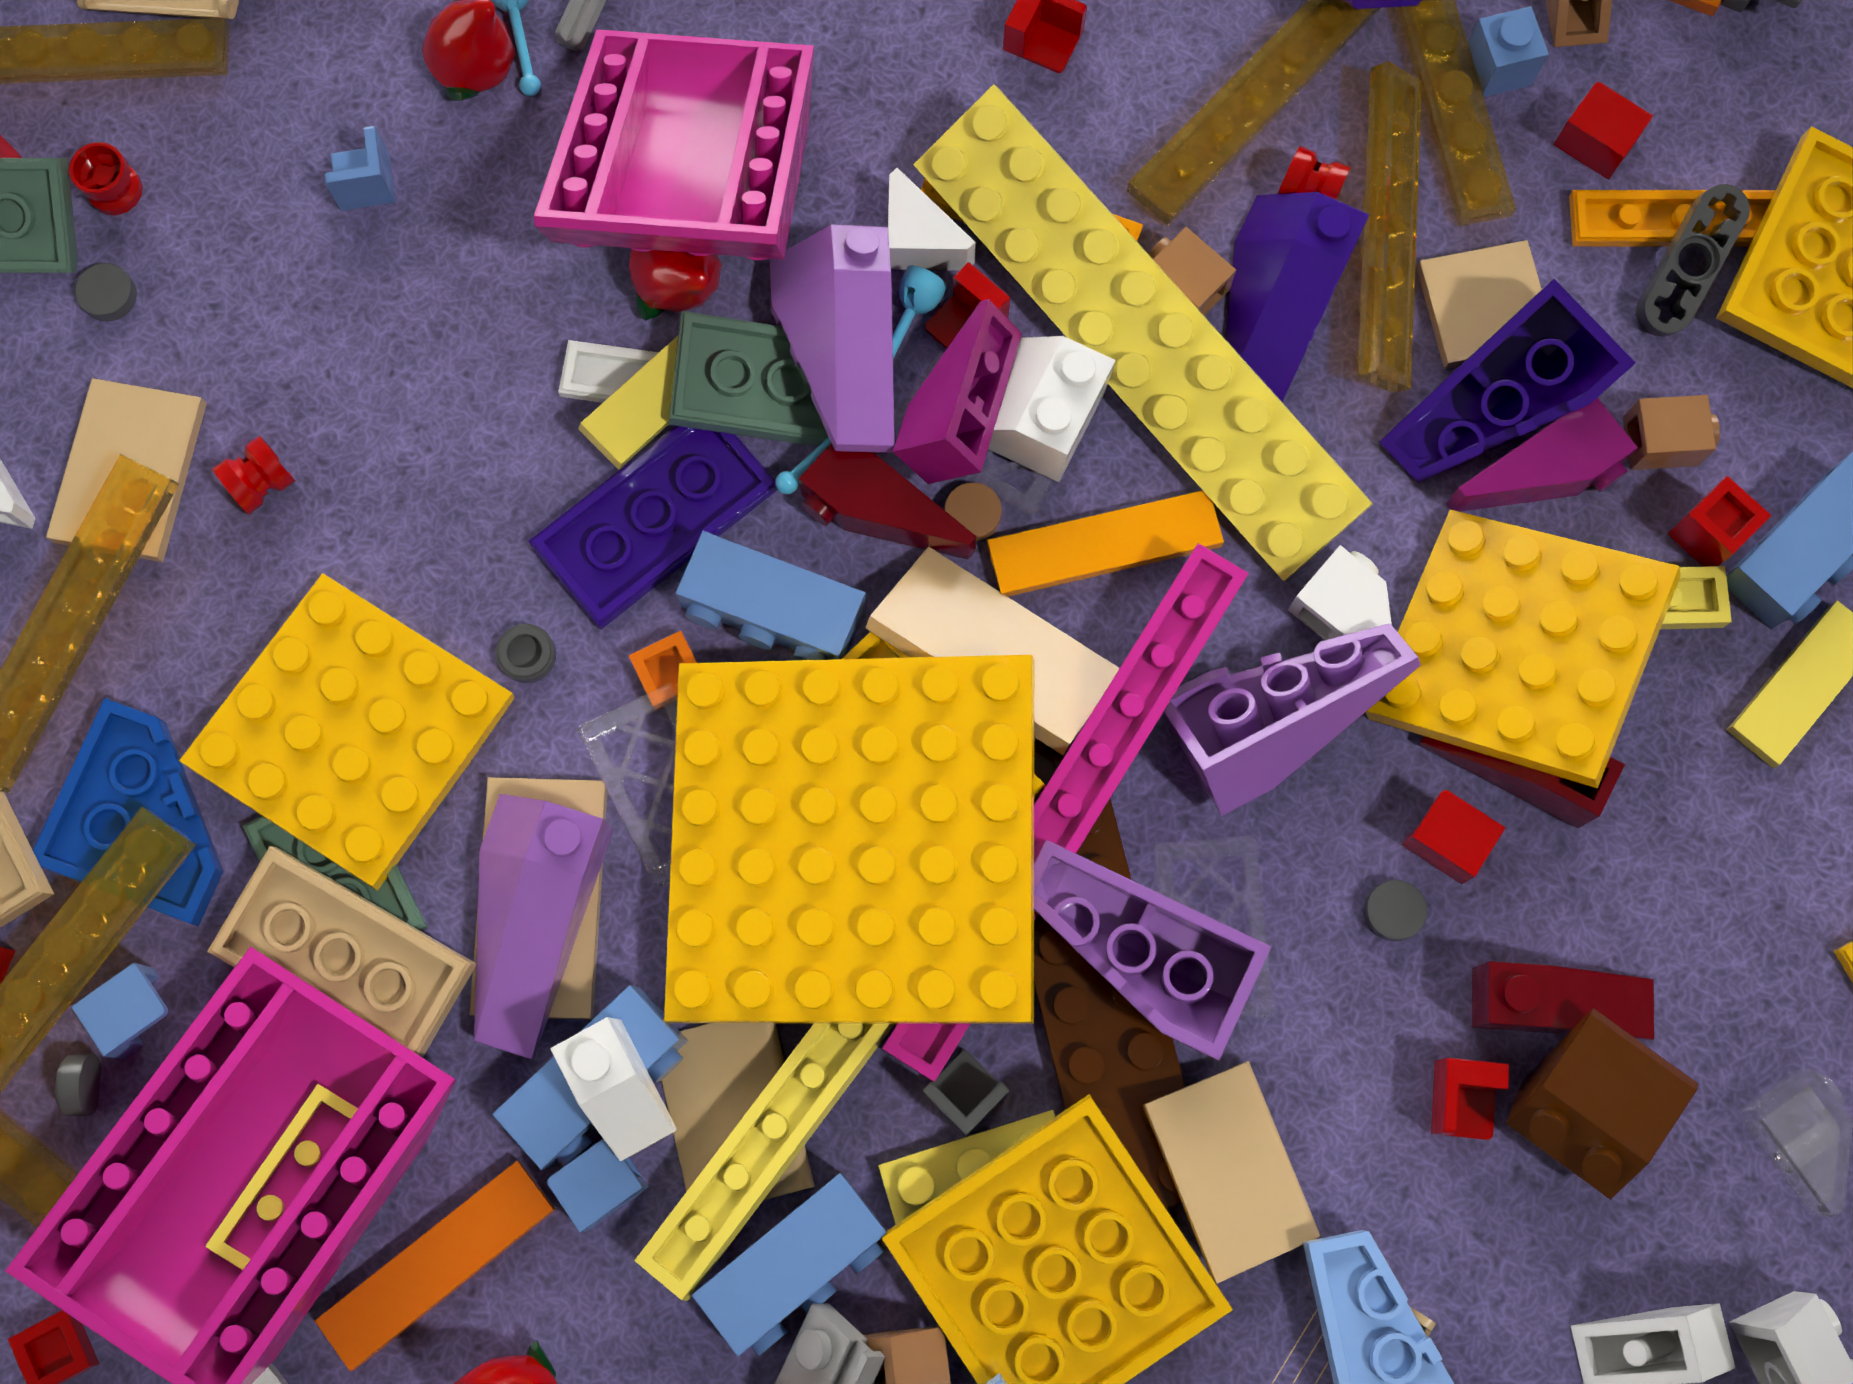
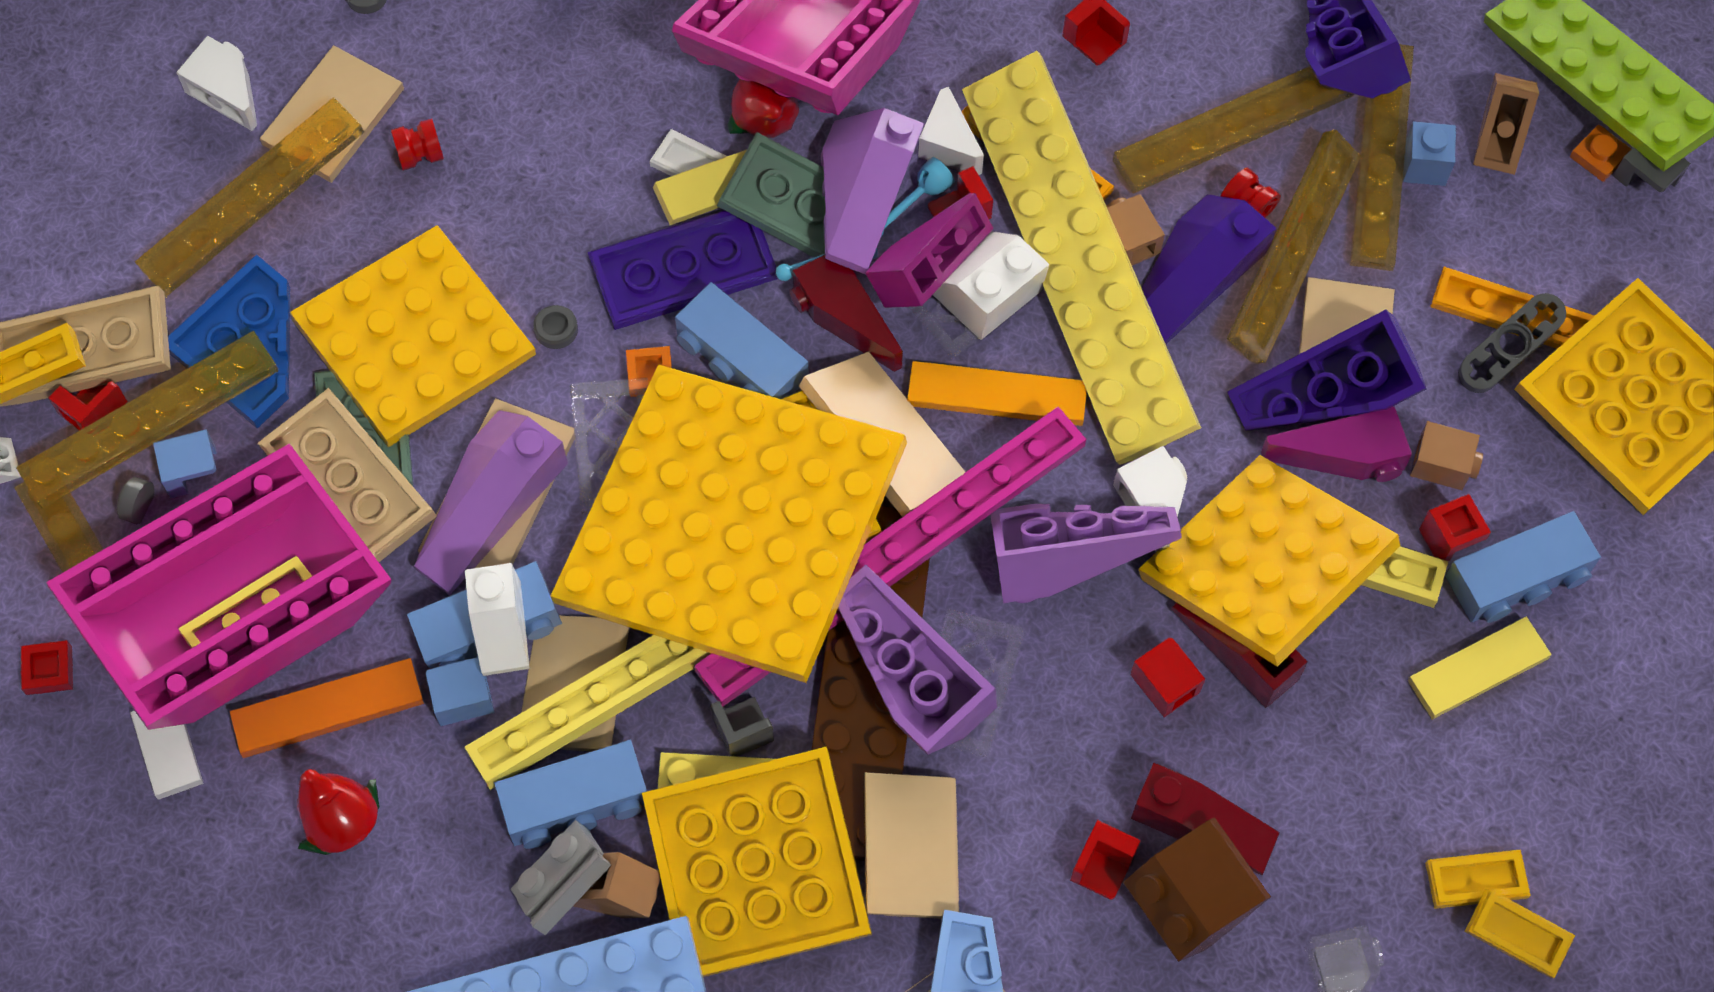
camera: 20 degrees right, 10 degrees down
(975, 508) = (913, 337): medium nougat tile -> none
(1395, 910) = (1106, 716): dark grey tile -> none
(1603, 130) = (1481, 231): red panel -> none

